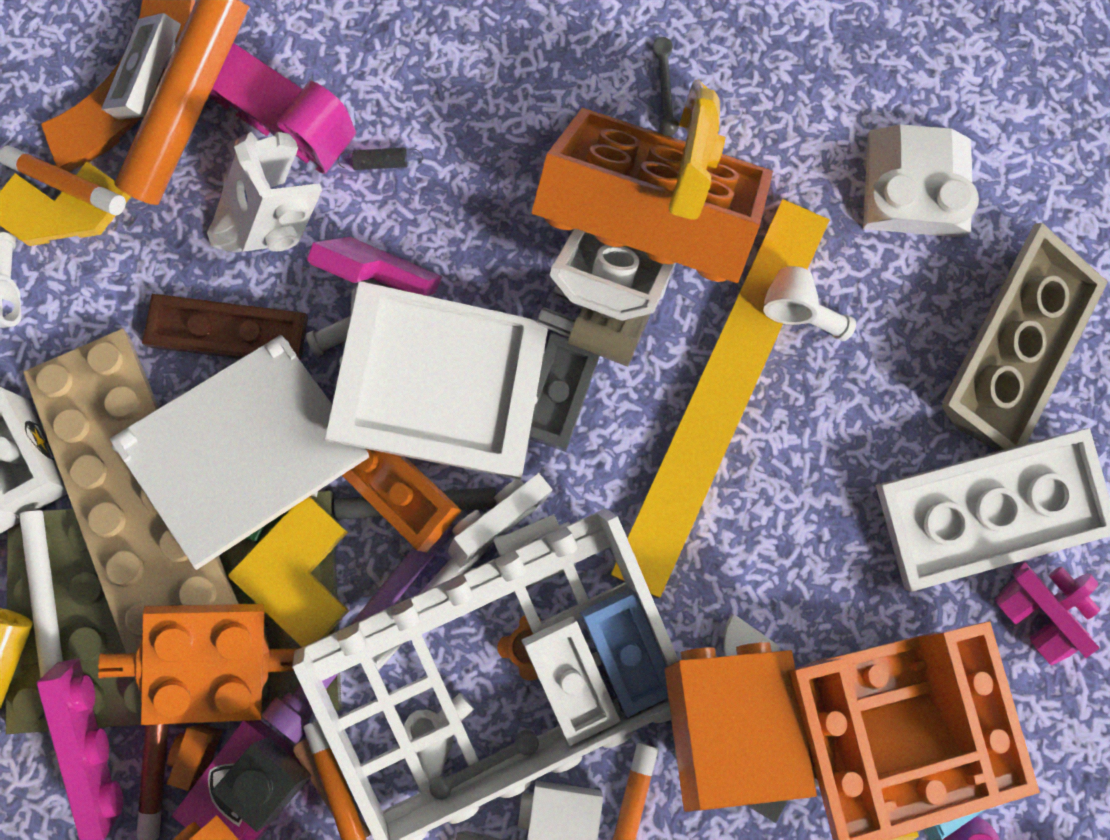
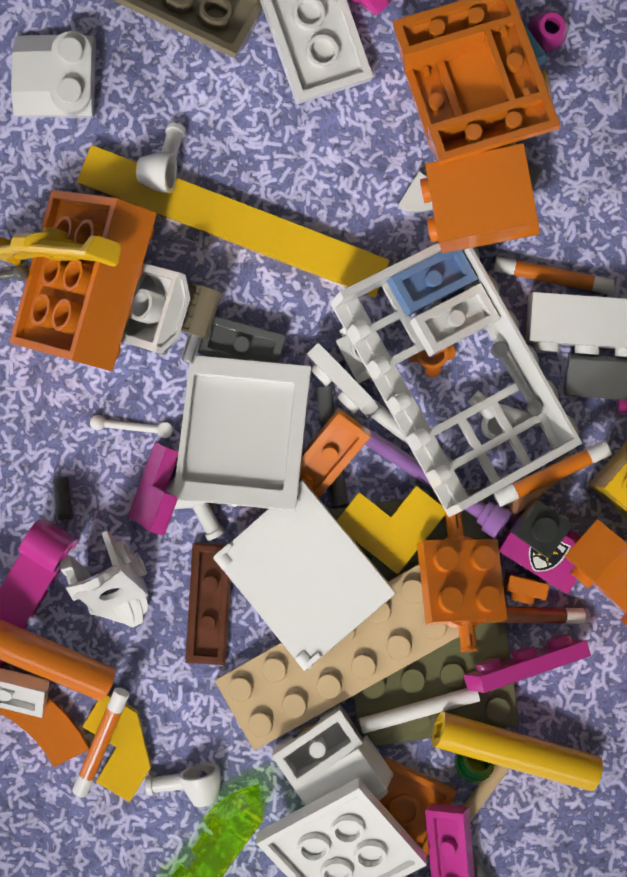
camera: 100 degrees left, 10 degrees up
(456, 288) = (164, 429): none -> white hinge

